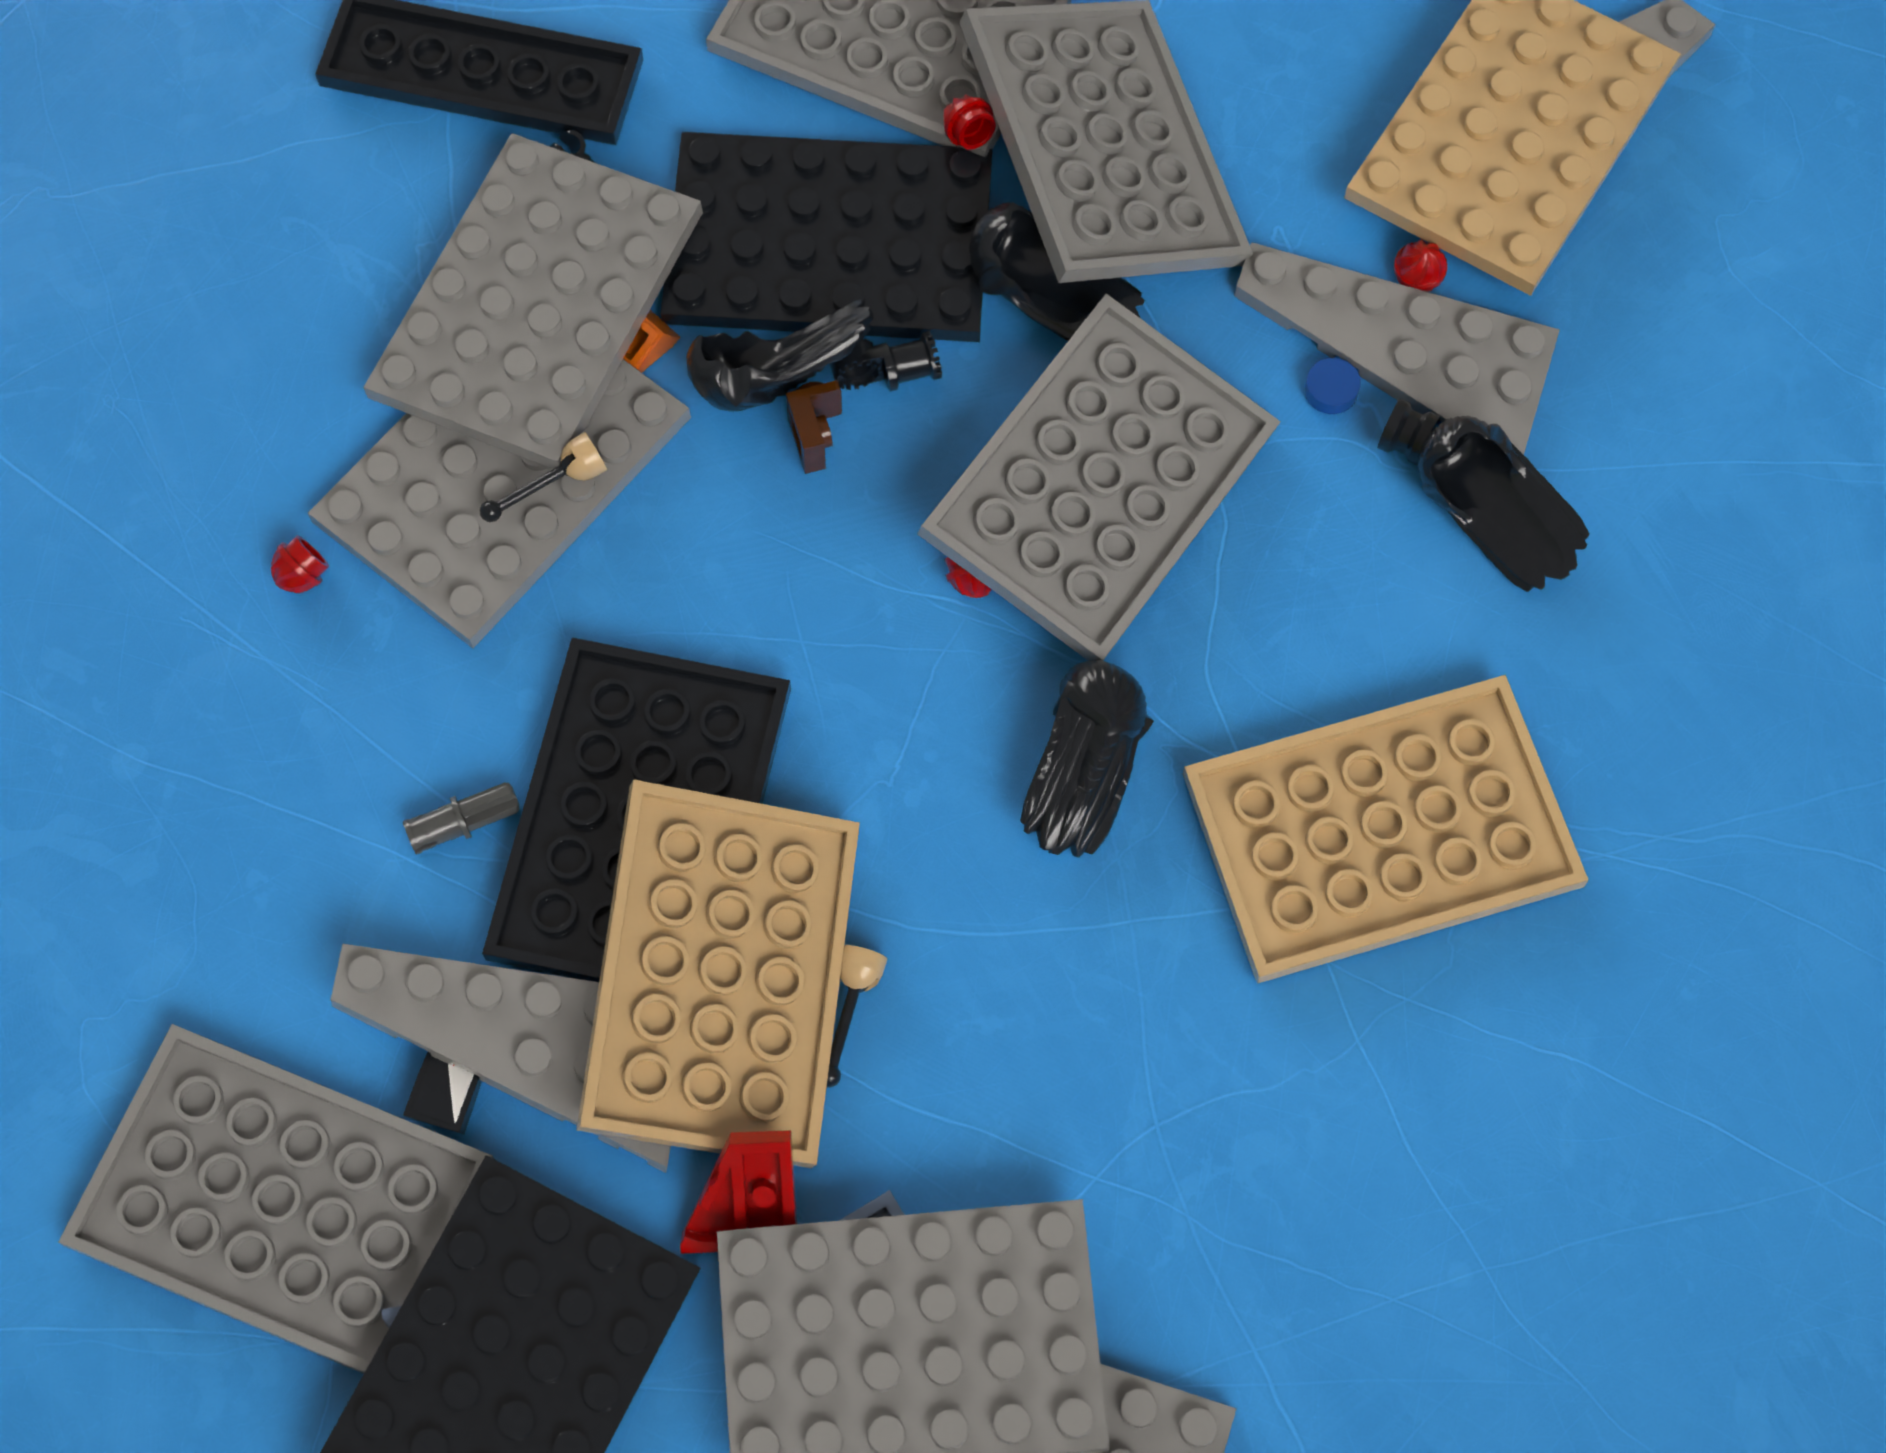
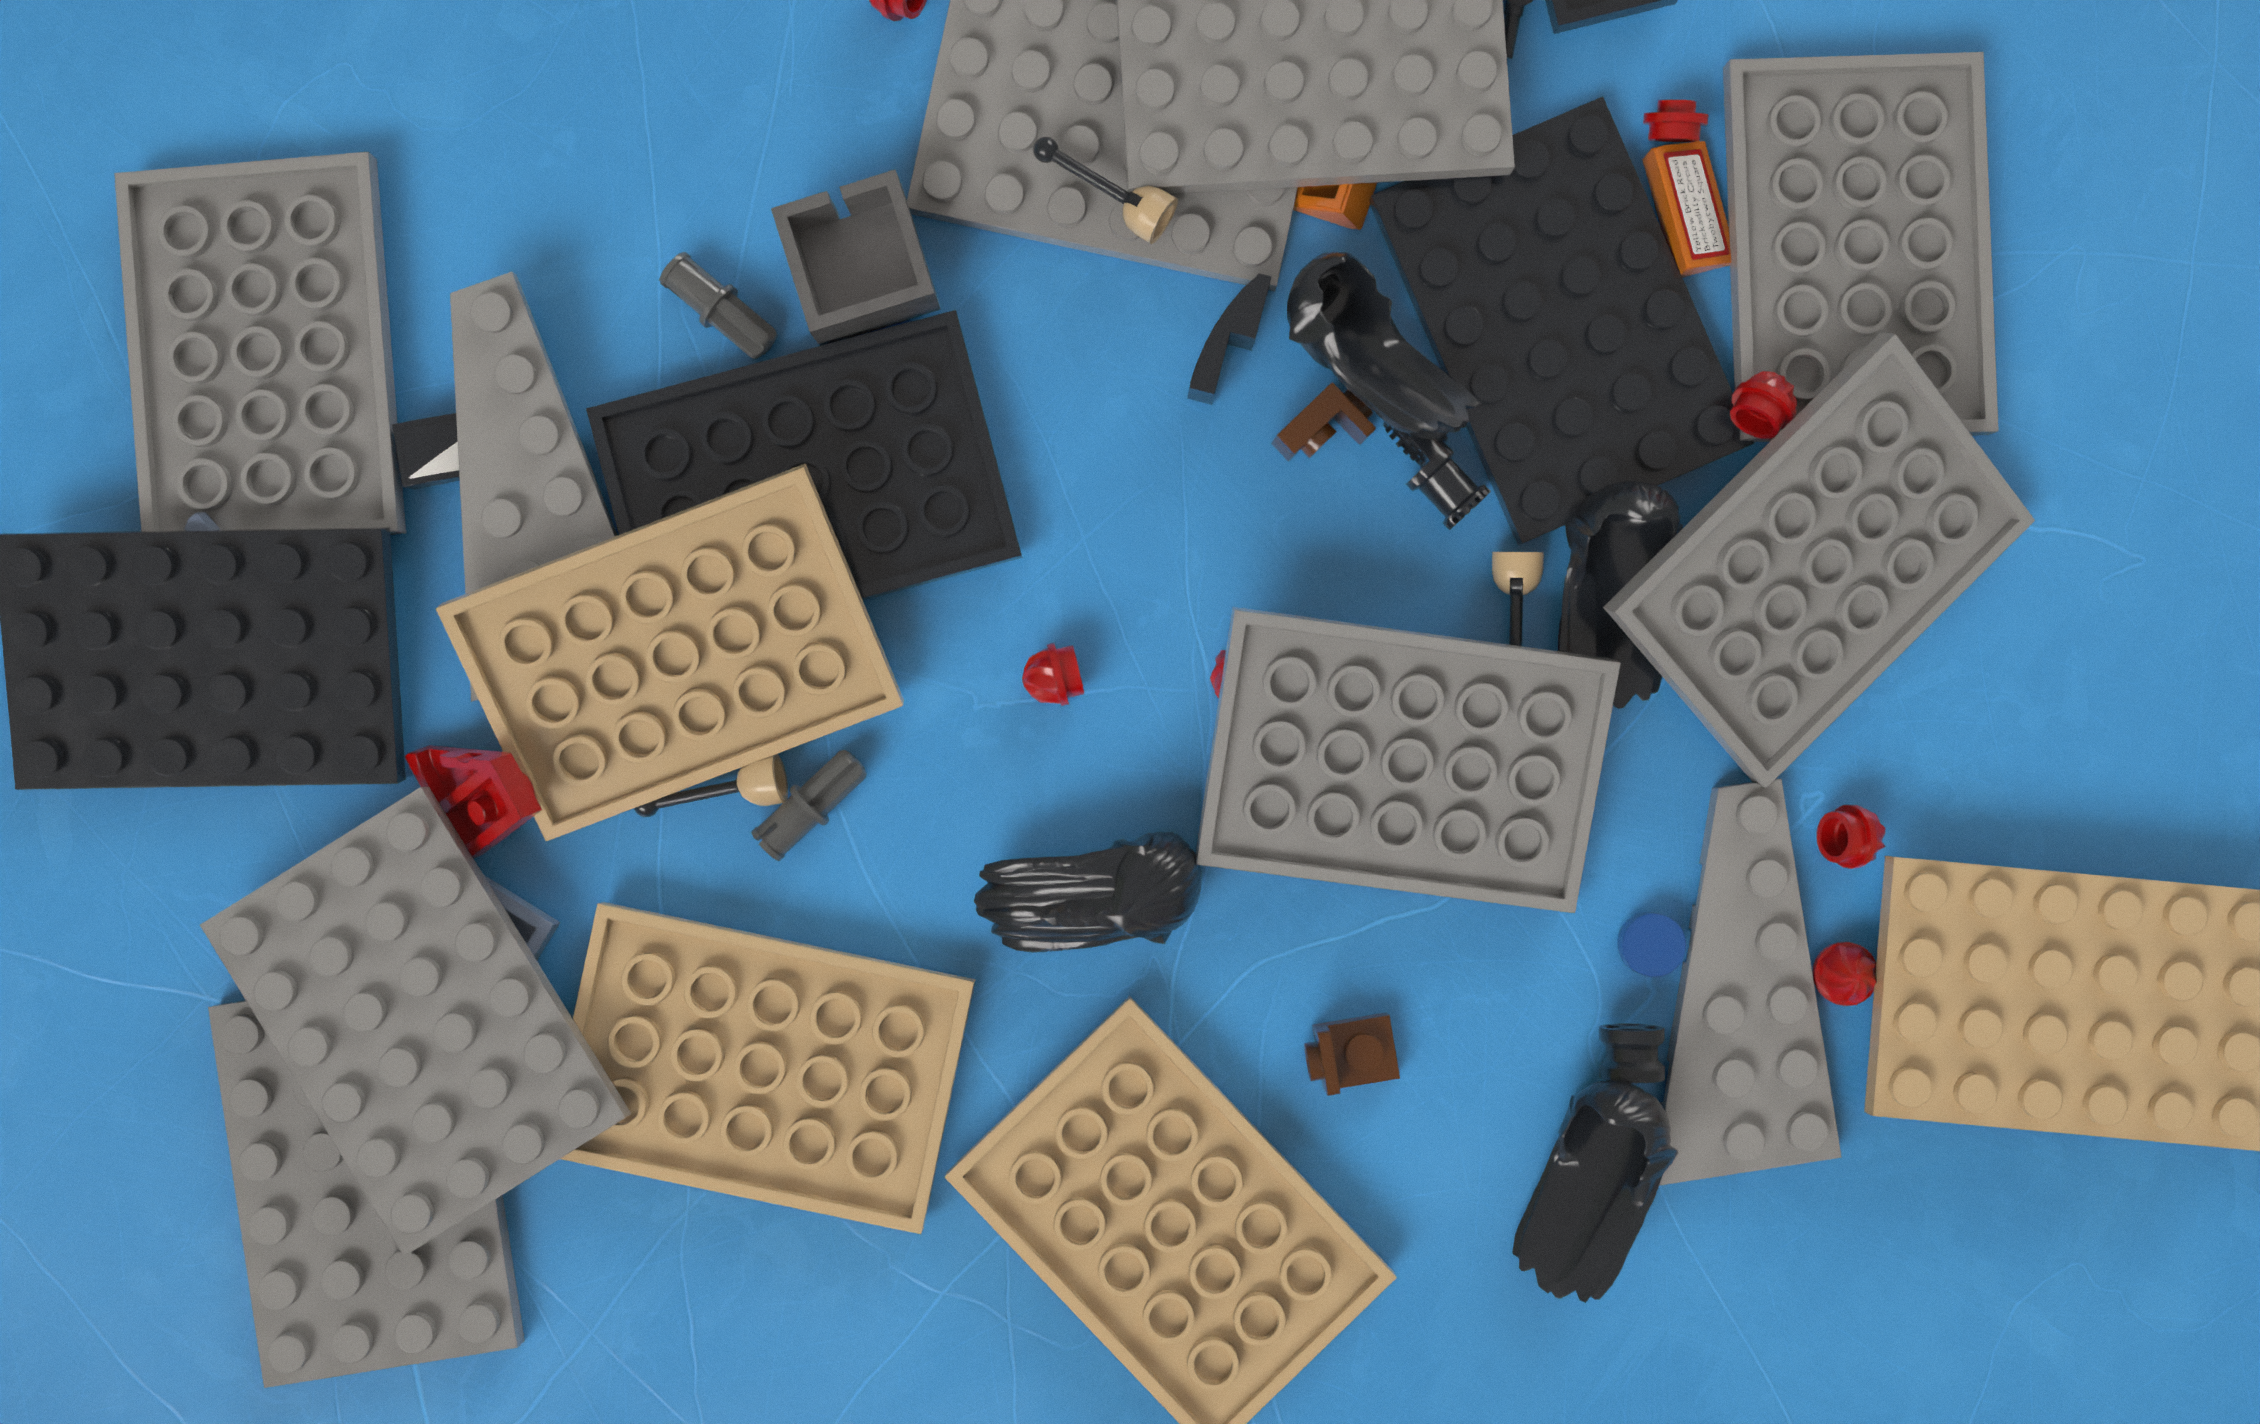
camera: 60 degrees right, 20 degrees up
(498, 681) = (857, 268): none -> flat silver piece
(707, 451) = (1235, 328): none -> black slope
(729, 94) = (1675, 121): none -> red plate
(793, 115) = (1689, 206): none -> slope
(897, 703) = (1053, 675): none -> red plate
(899, 941) = (809, 804): none -> dark grey axle
(1002, 345) = (1517, 576): none -> tan hinge
(1098, 1075) = (770, 1065): none -> tan plate
(1311, 630) = (1352, 1052): none -> reddish brown bracket
(1317, 215) = (1850, 836): none -> red plate

